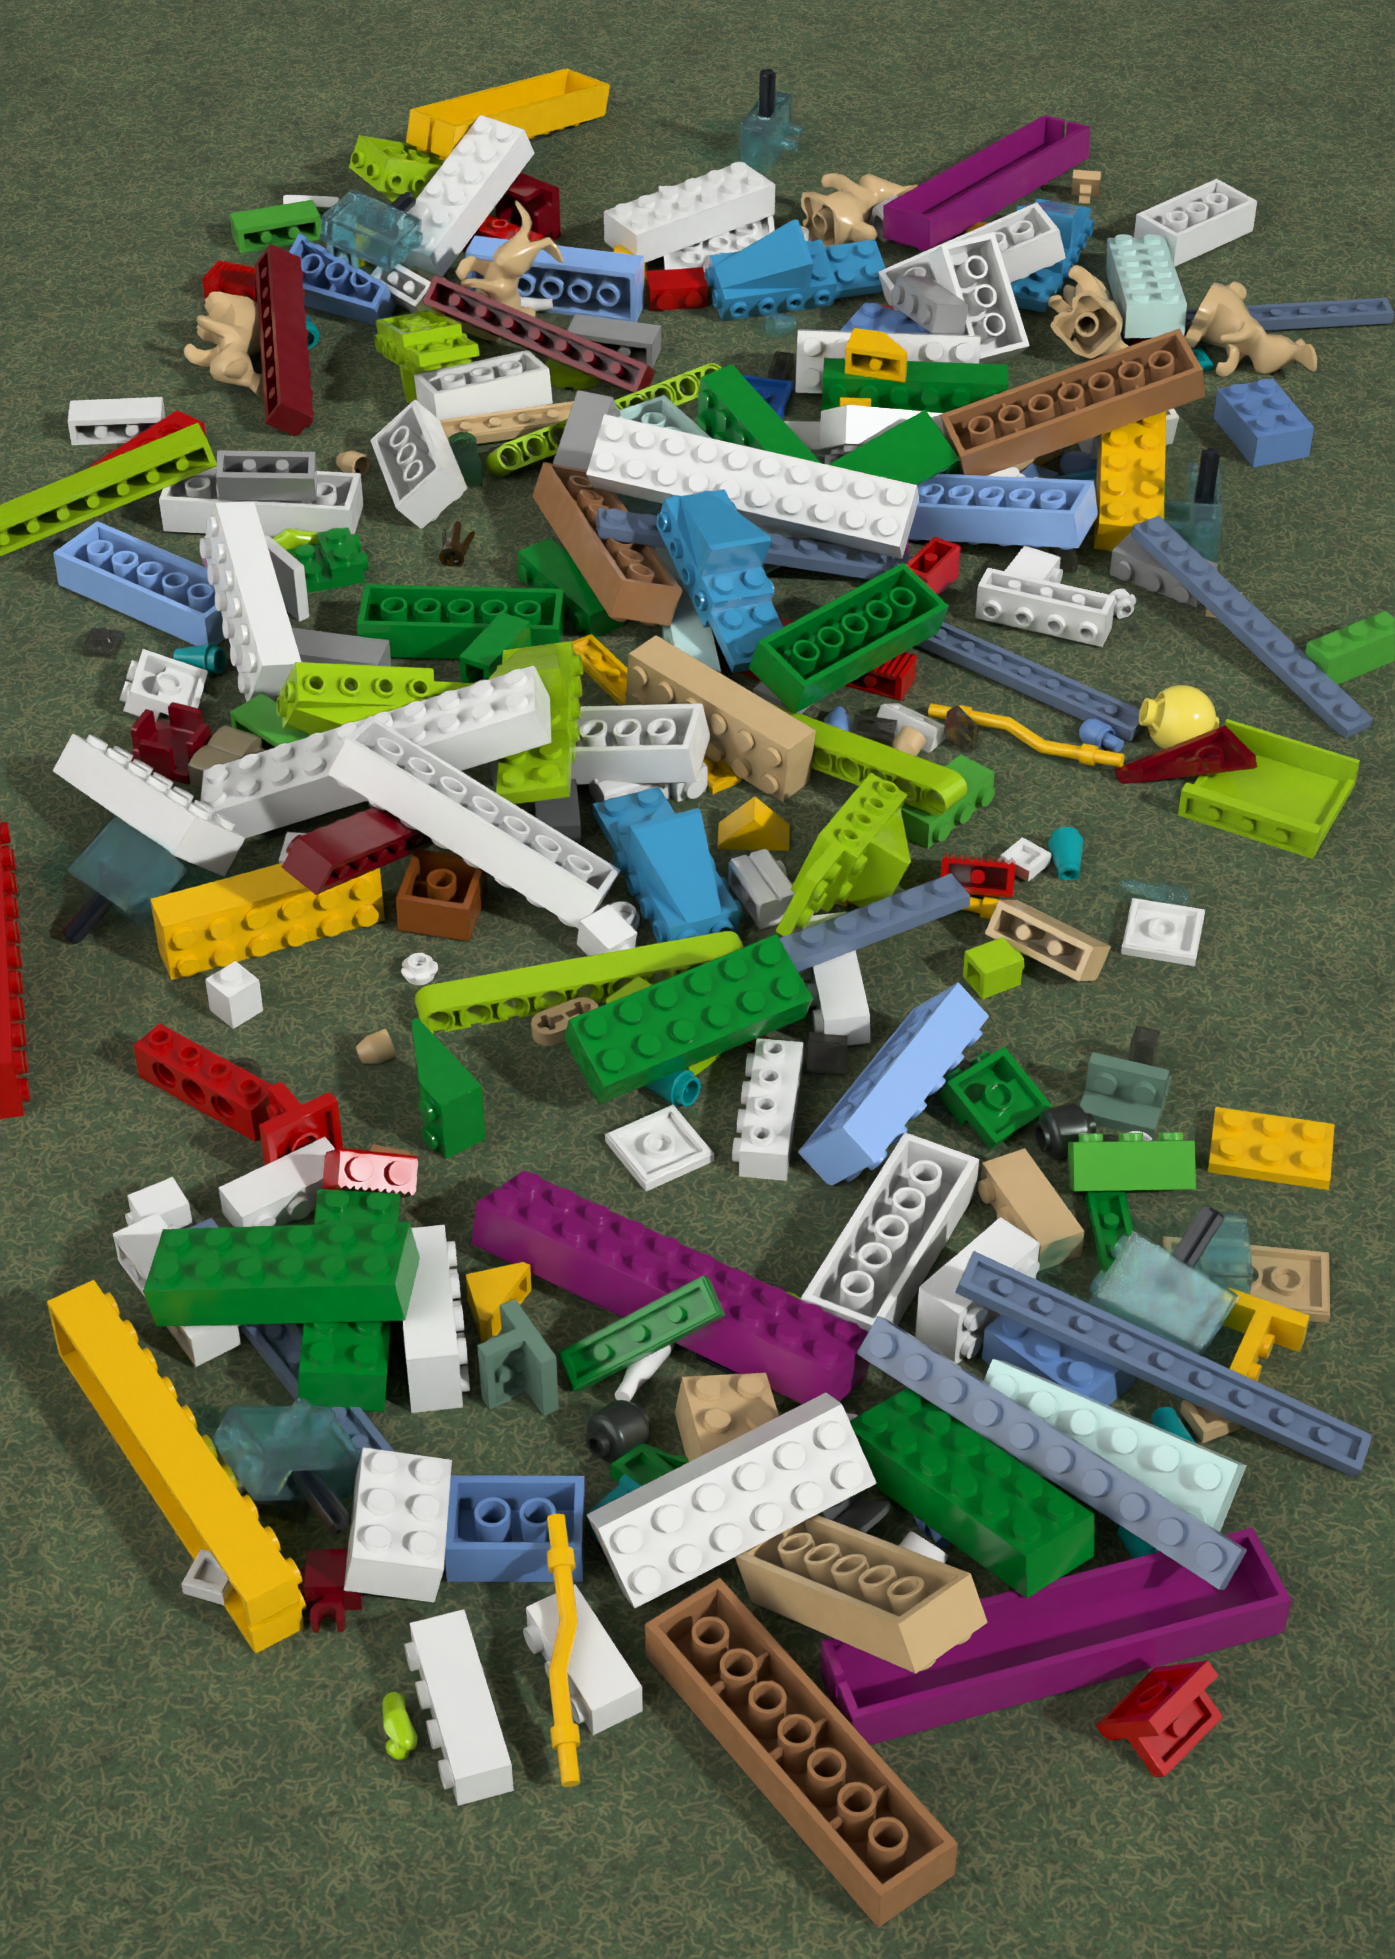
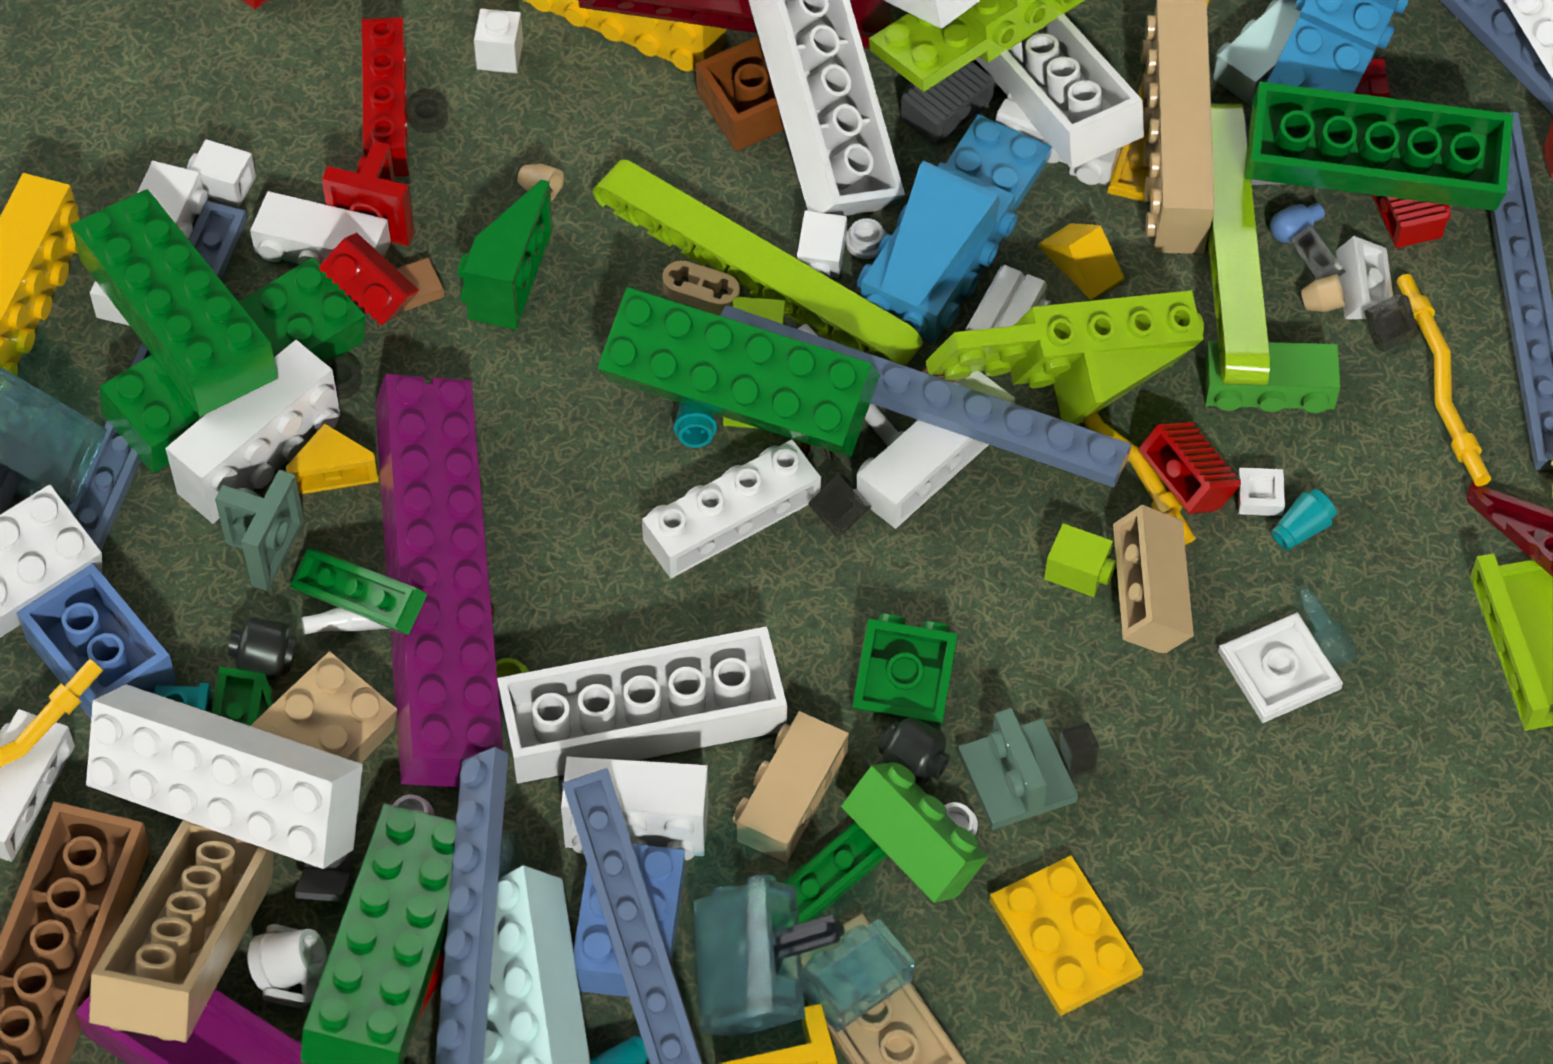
camera: 50 degrees right, 15 degrees up
(419, 969) = (662, 148): white plate -> none
(659, 1147) = (618, 459): white tile -> none
(894, 1086) = (831, 581): light blue brick -> none
(1099, 733) = (1513, 433): medium blue cylinder -> none

